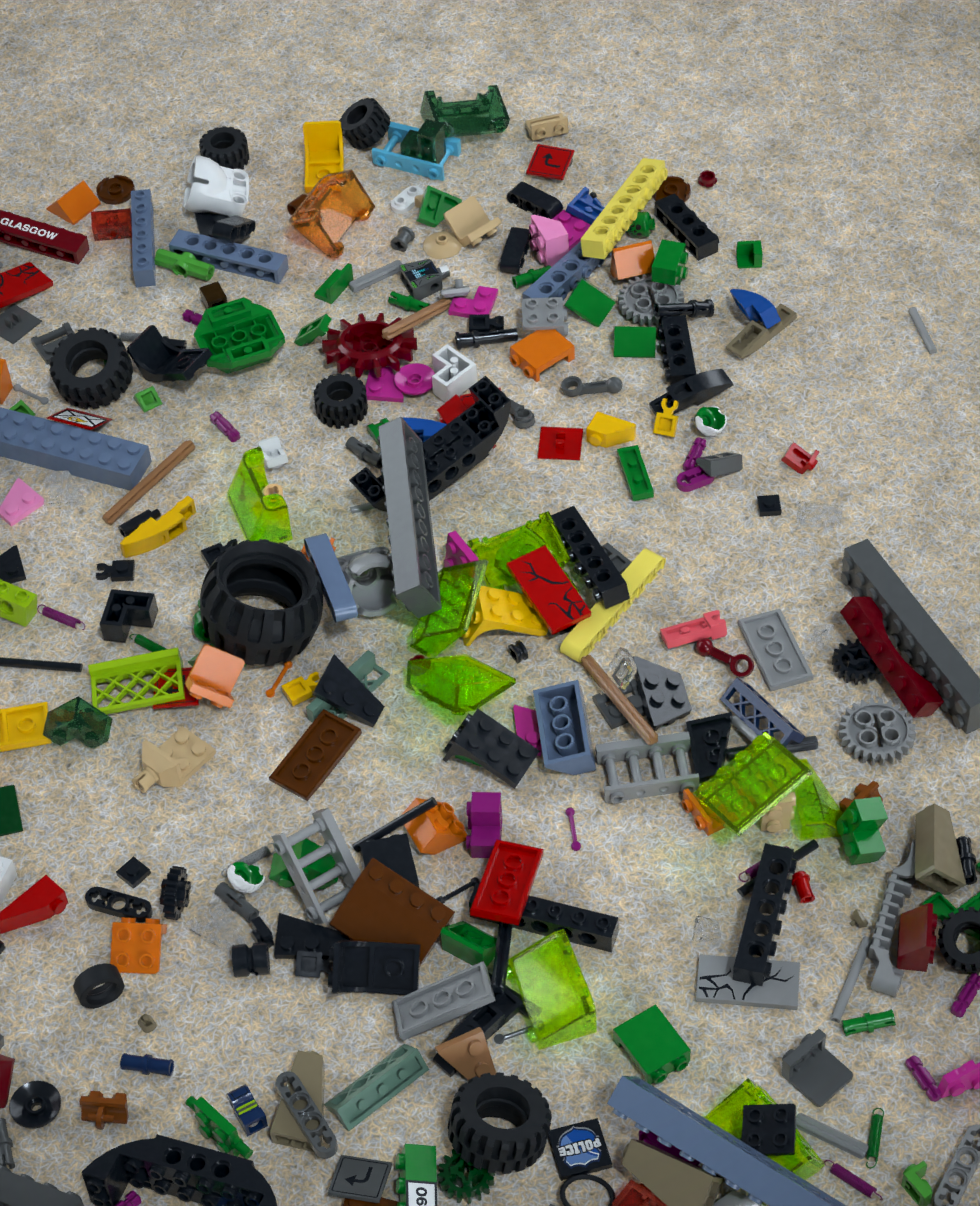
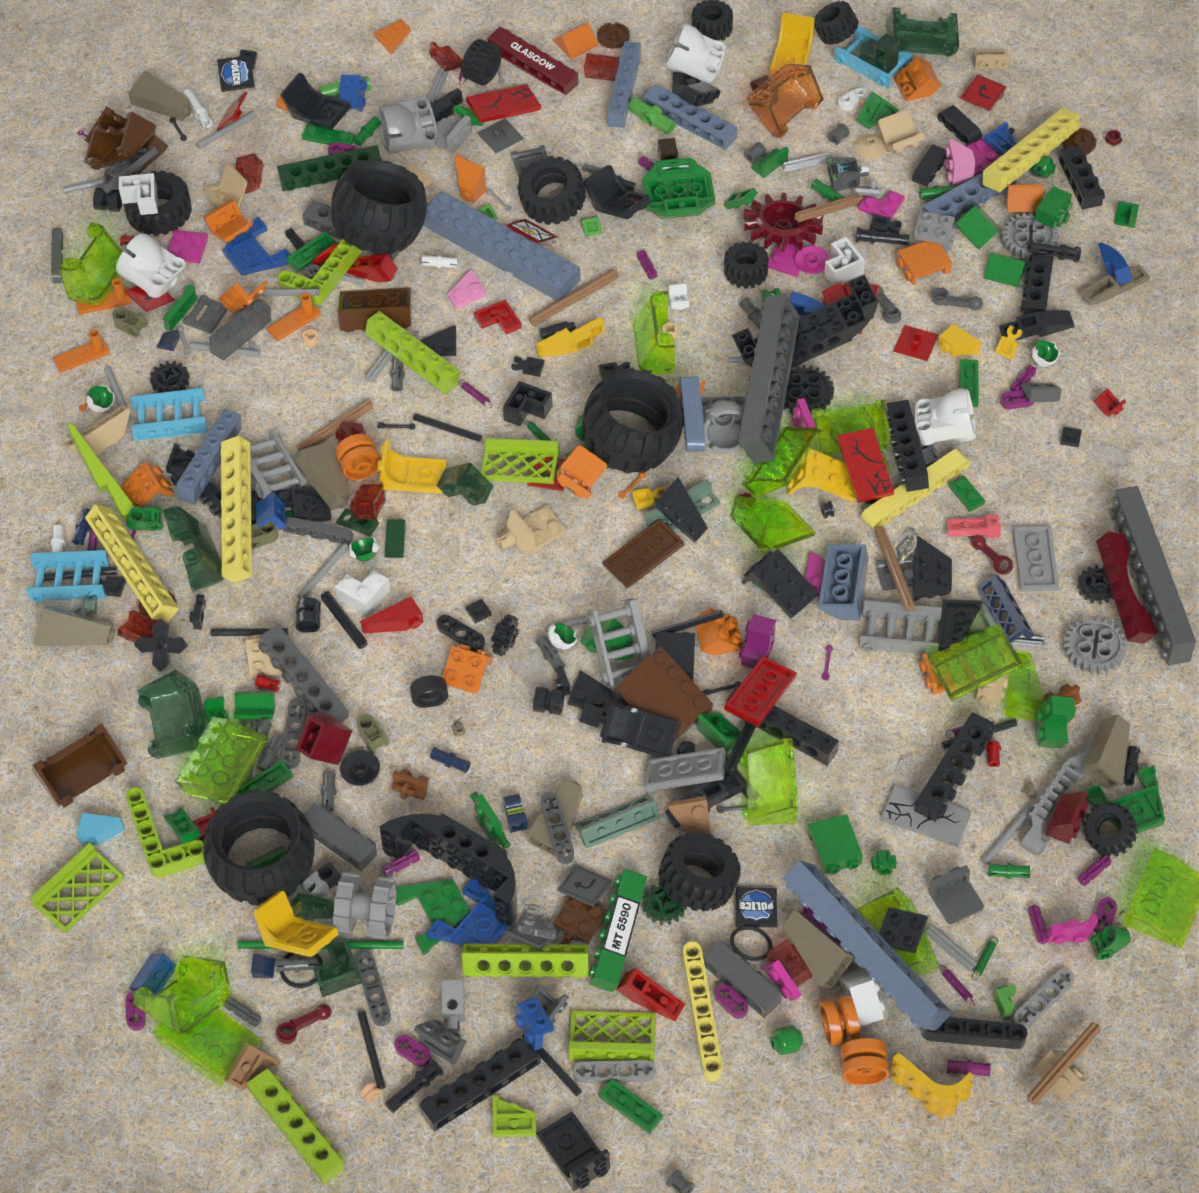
camera: 15 degrees right, 5 degrees up
(42, 1059) = (372, 736): none -> olive piece
(65, 519) = (498, 313): none -> red plate
(314, 278) = (755, 152): none -> dark grey bush
(435, 974) = (686, 747): none -> black plate
(458, 516) = (811, 386): none -> black gear
(472, 164) = (917, 80): none -> orange slope
(623, 516) = (945, 418): none -> white piece
(672, 595) = (966, 493): none -> green plate
(717, 1051) = (884, 862): none -> green gear

